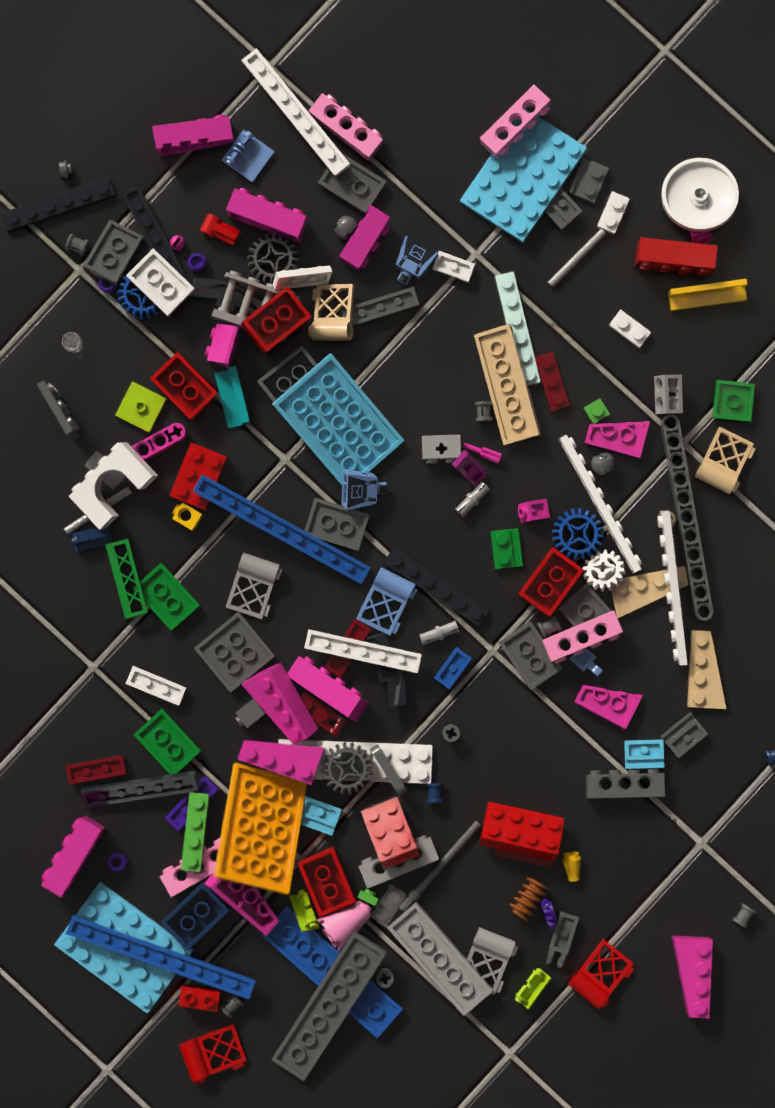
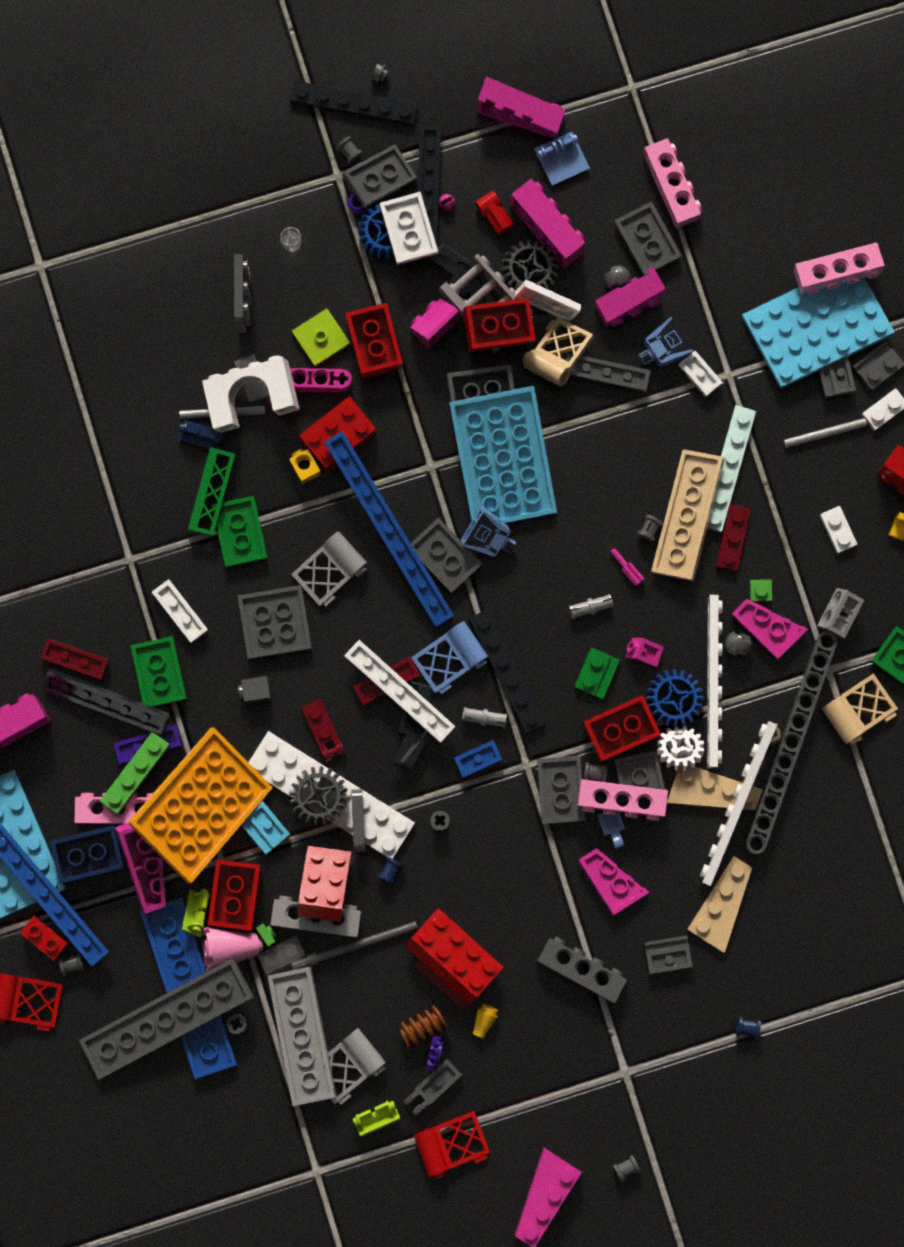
camera: 25 degrees right, 5 degrees down
(111, 864) = (36, 757): dark purple plate -> none
(197, 262) = (454, 231): dark purple plate -> none
(232, 397) = (414, 378): teal panel -> none
(281, 702) = (292, 696): dark pink wedge -> none
(286, 759) = (267, 755): dark pink wedge -> none
(296, 112) = (631, 143): white plate -> none
(327, 689) = (344, 708): dark pink wedge -> none
(431, 443) = (582, 530): light grey brick -> none
(470, 468) = (605, 574): magenta plate -> none
(644, 754) = (618, 950): medium azure plate -> none

